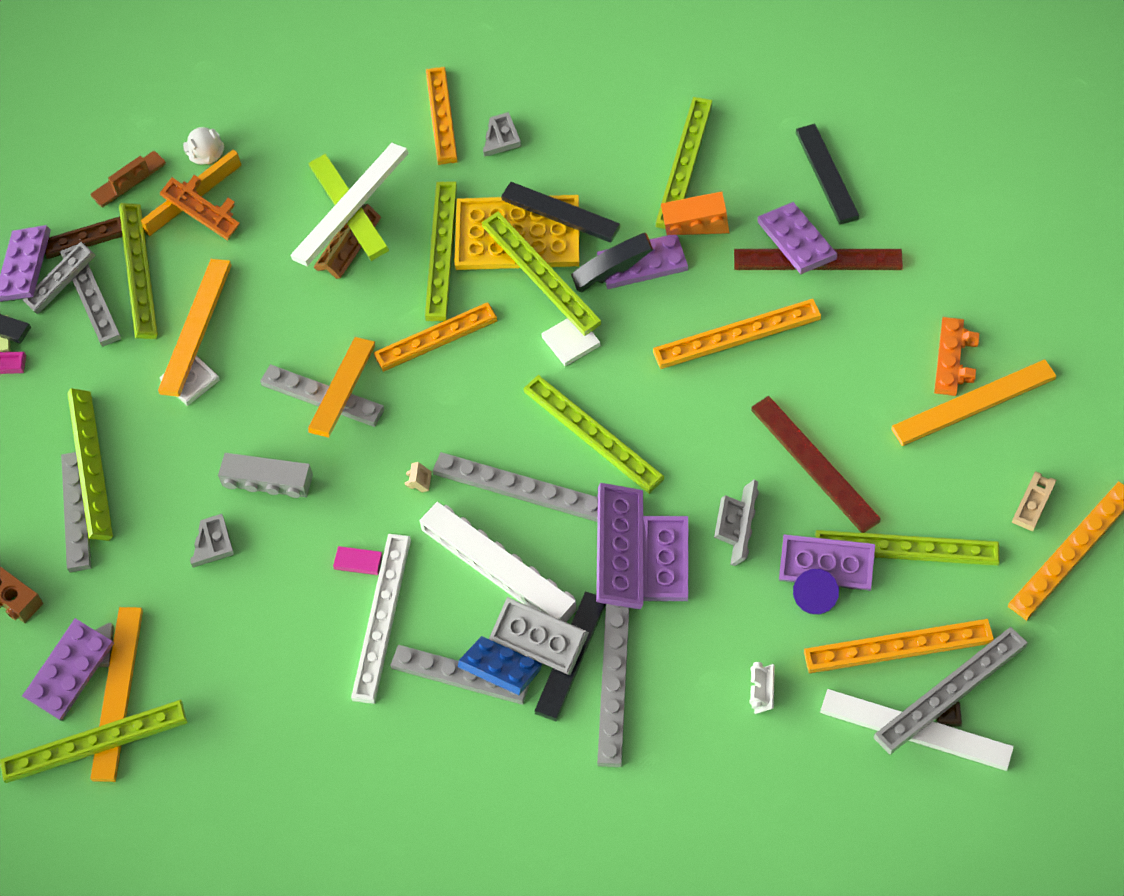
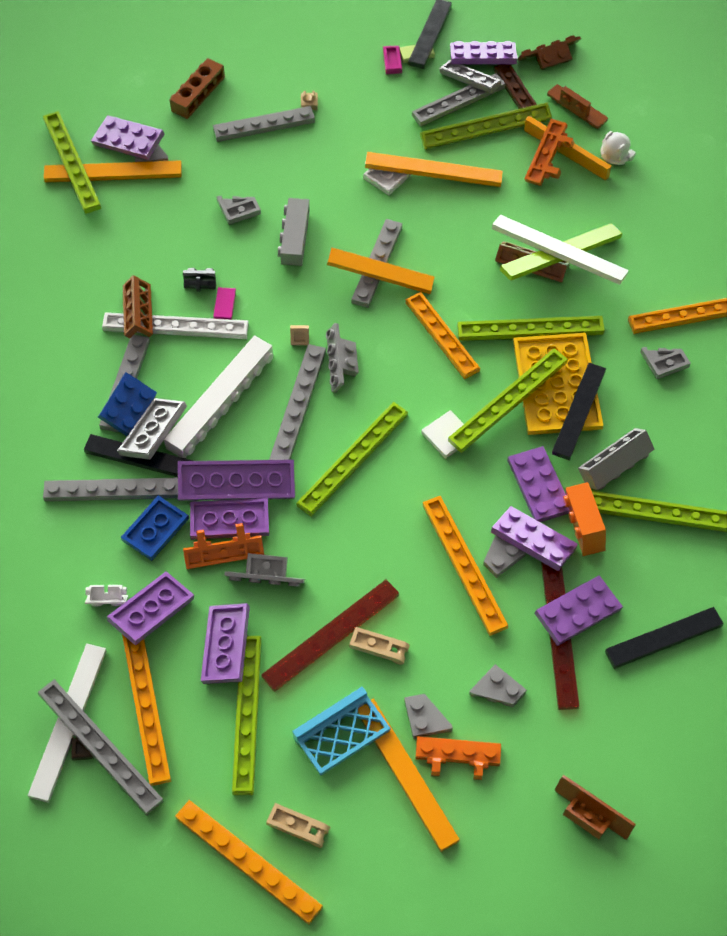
camera: 80 degrees right, 0 degrees up
(40, 194) = (553, 54): none -> dark orange bracket
(50, 457) = (309, 99): none -> tan tile
(90, 465) = (302, 123): lime plate -> none
(320, 585) = (199, 278): none -> black hips
(354, 656) = (133, 304): none -> dark orange fence
(456, 438) = (342, 357): none -> light grey bracket
(615, 259) = (526, 453): black slope -> none
(623, 186) = (616, 459): none -> light grey brick
(672, 637) = (154, 528): none -> blue plate
(710, 268) = (534, 538): none -> medium lavender plate
(711, 577) = (210, 554): none -> orange hinge
(724, 300) = (502, 556): none -> light grey wing
(782, 637) = (150, 608): none -> medium lavender plate
(815, 591) = (196, 635): dark purple tile -> none
(830, 418) = (379, 645): none -> tan plate
(879, 316) = (498, 687): none -> light grey wing
(911, 382) = (425, 717): none -> light grey wing
(913, 461) = (328, 719): none -> medium azure fence
(1014, 248) = (592, 812): none -> dark orange bracket

